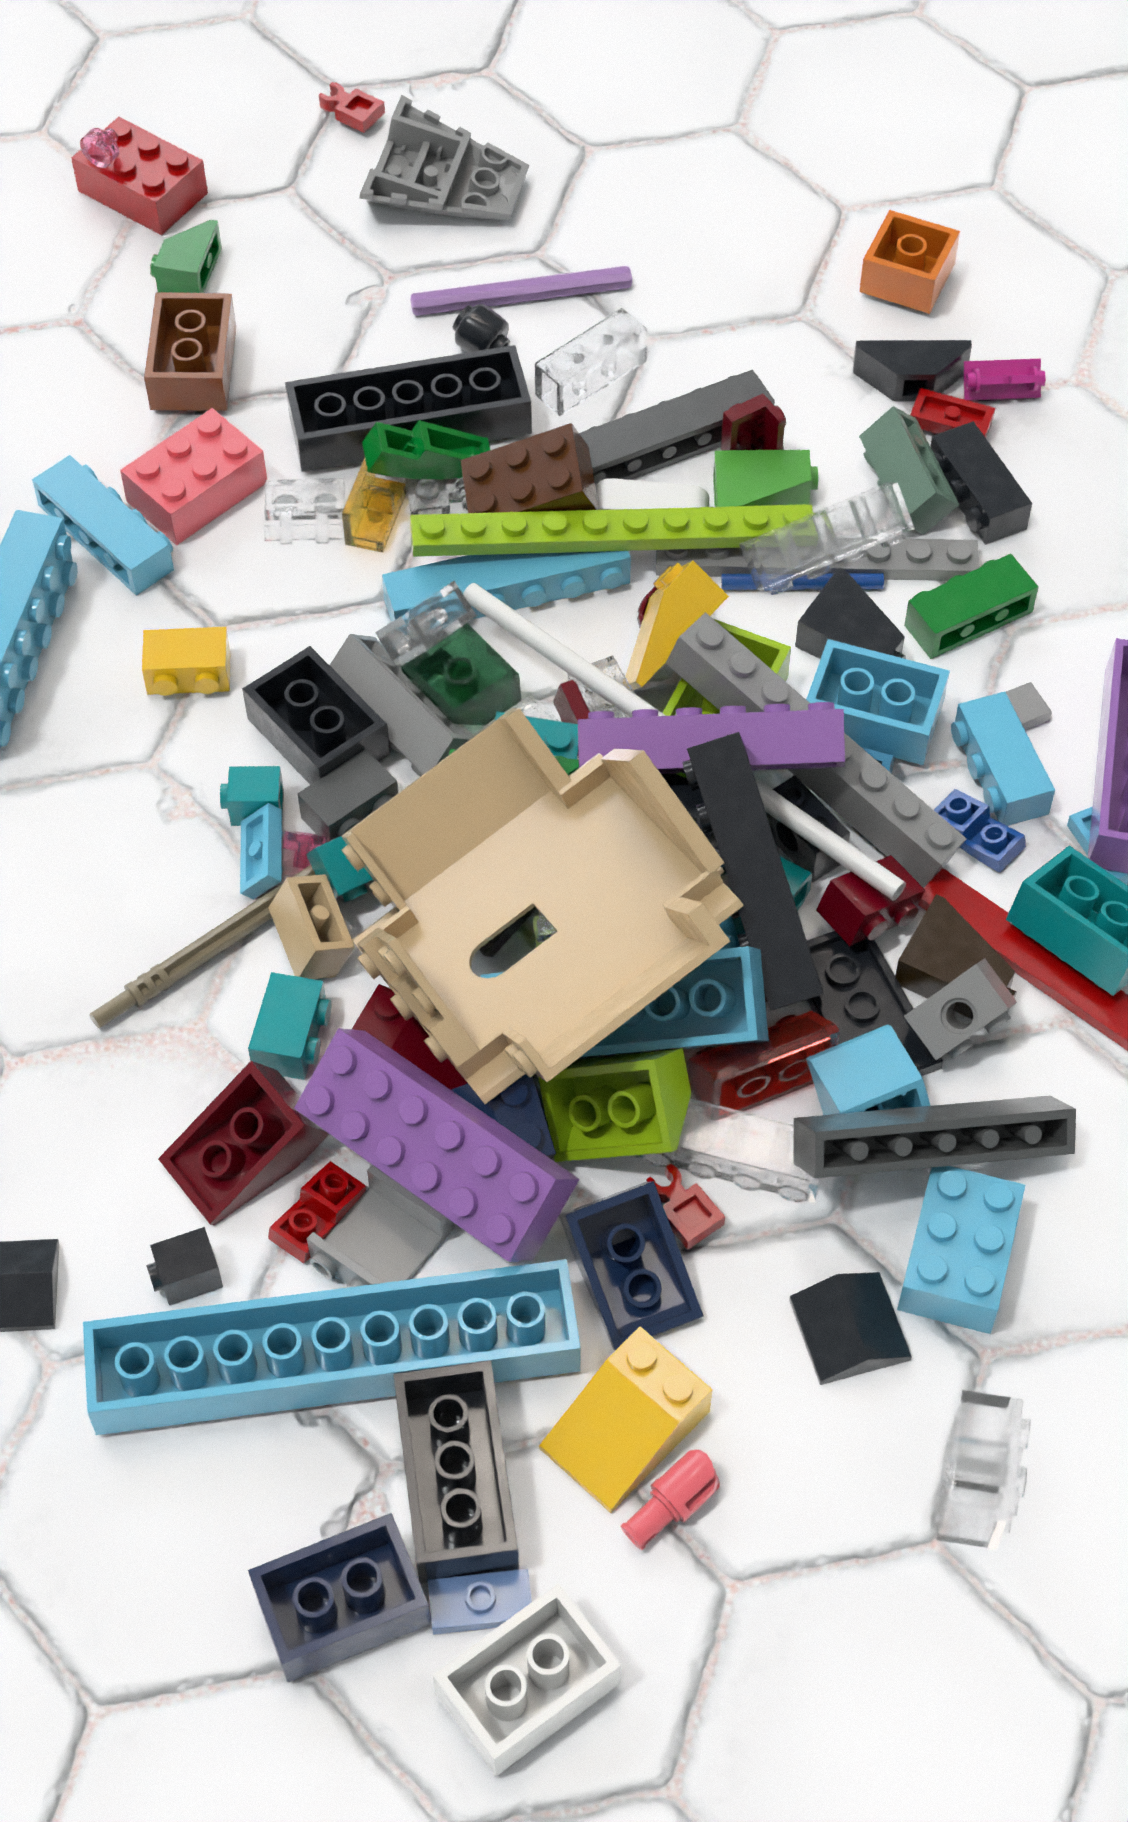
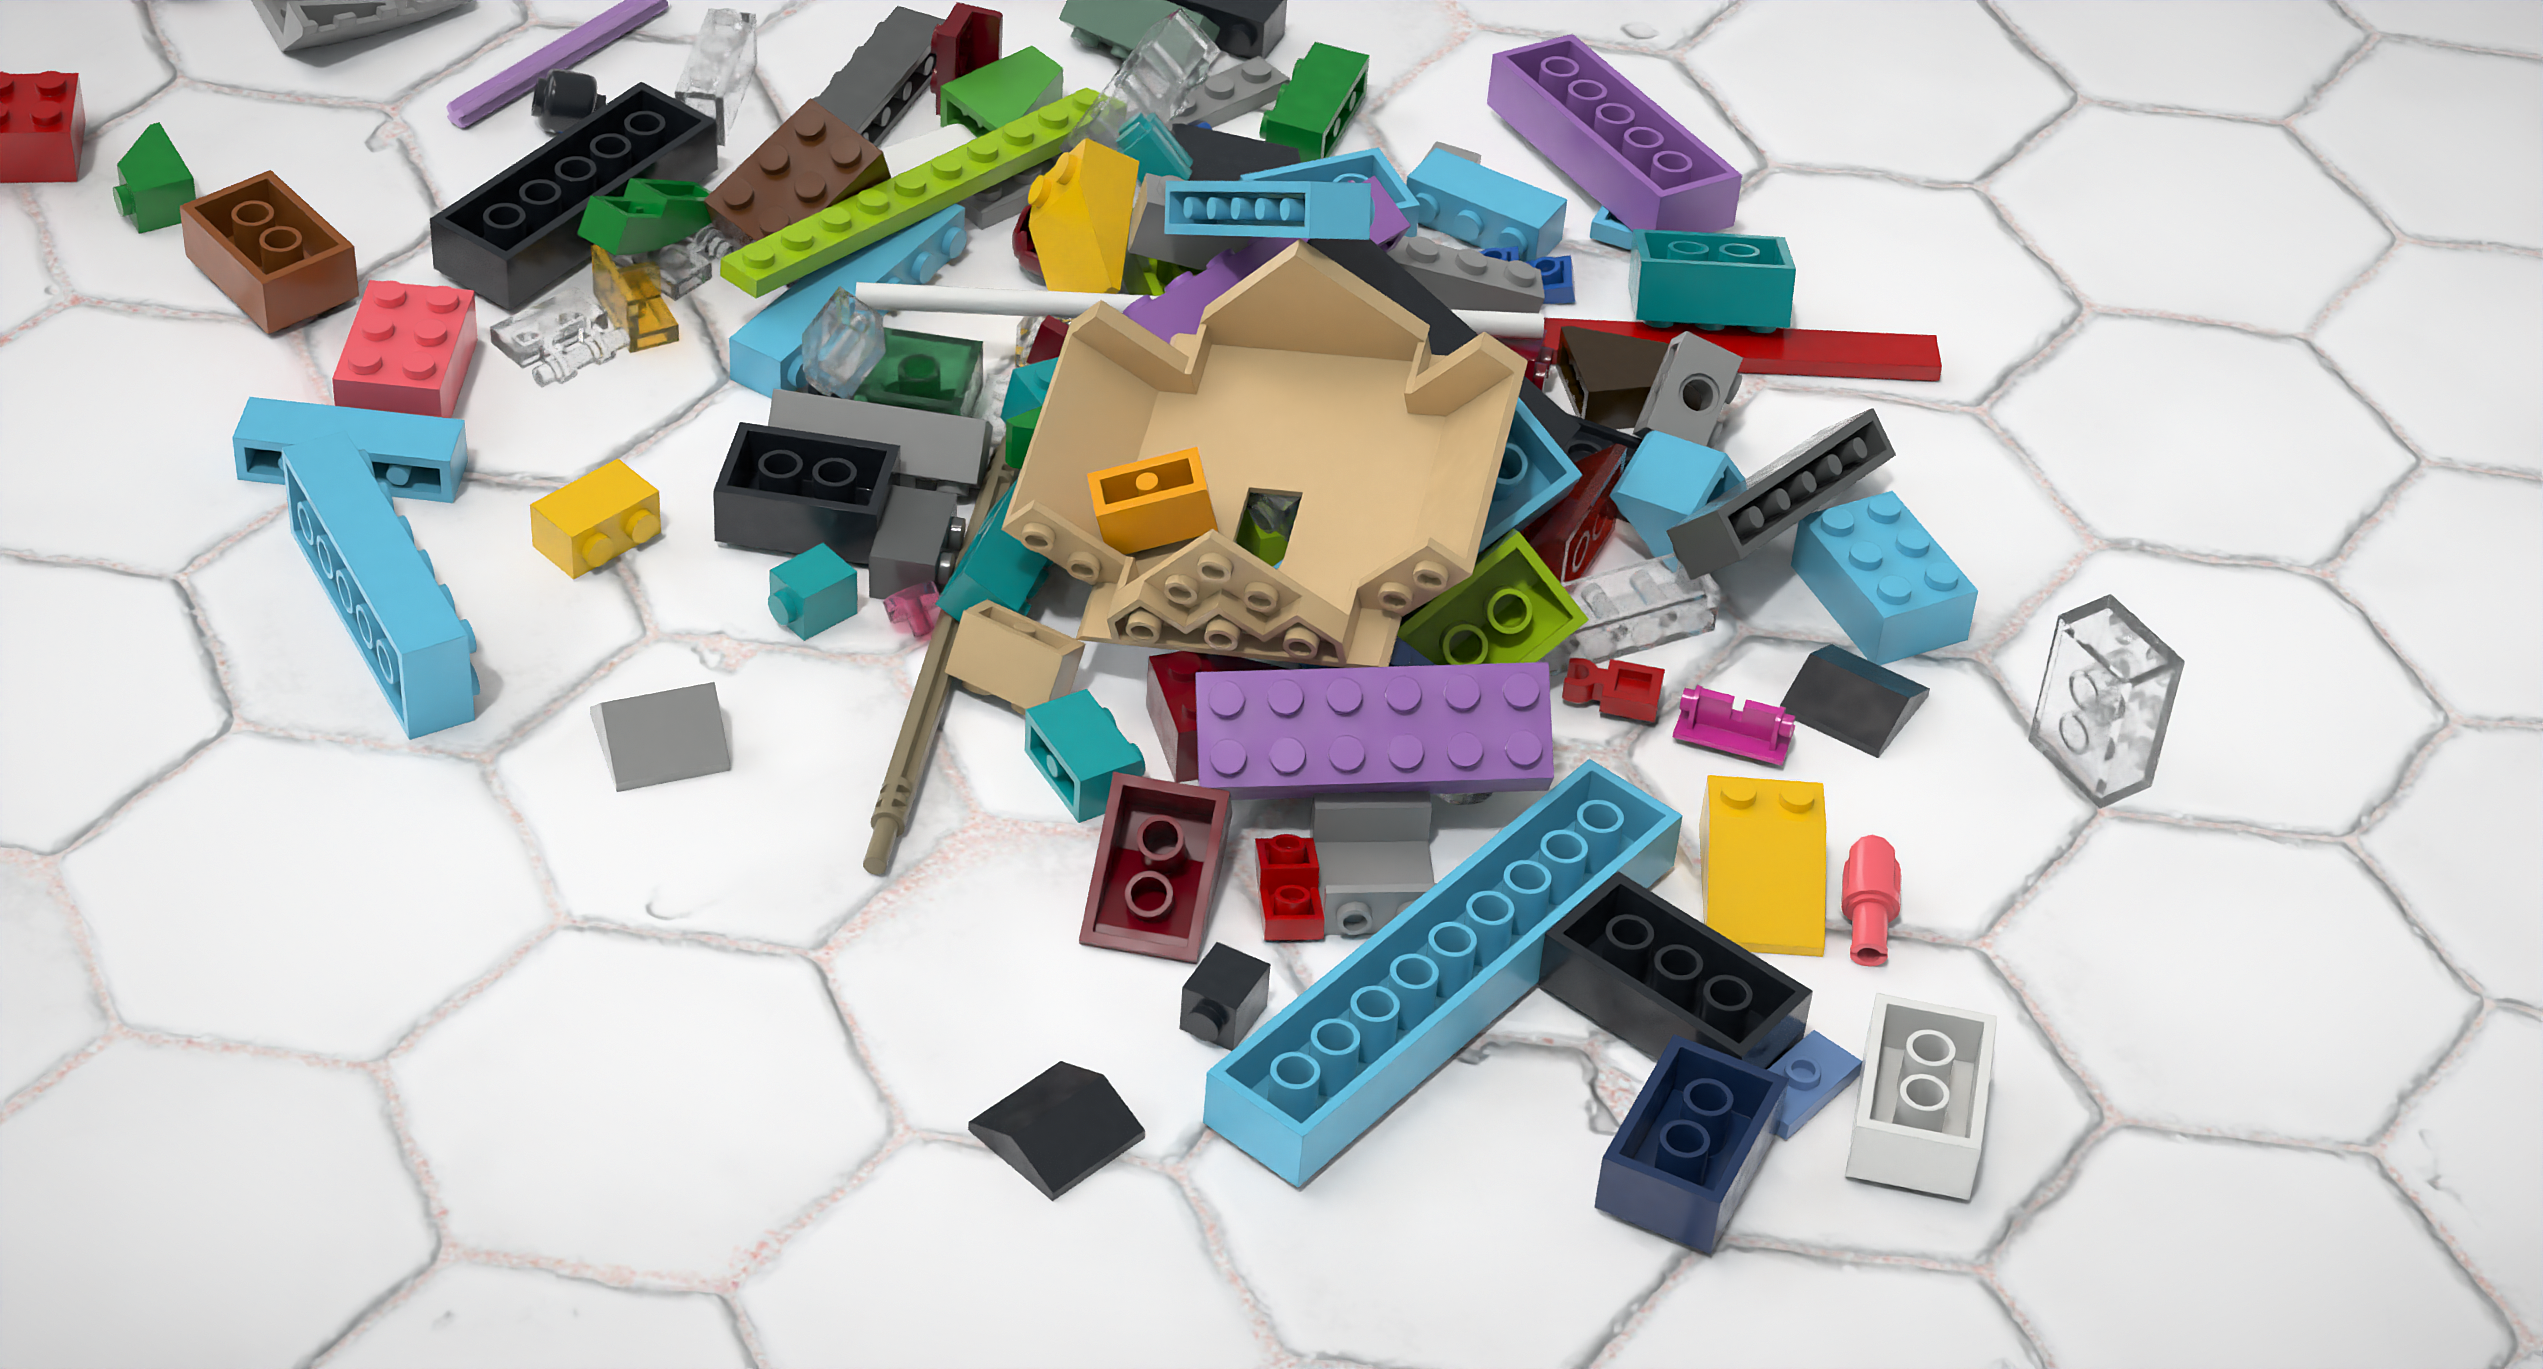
camera: 45 degrees left, 15 degrees down
(72, 841) = (662, 736): none -> light grey slope
(261, 851) = (876, 633): medium azure plate -> none
(444, 878) = (1152, 501): none -> light orange brick
(631, 1263) = (1632, 735): dark blue slope -> none
(691, 707) = (1269, 209): none -> medium azure brick
(732, 1293) = (1755, 732): none -> dark pink hinge
(772, 591) = (1153, 147): none -> teal brick

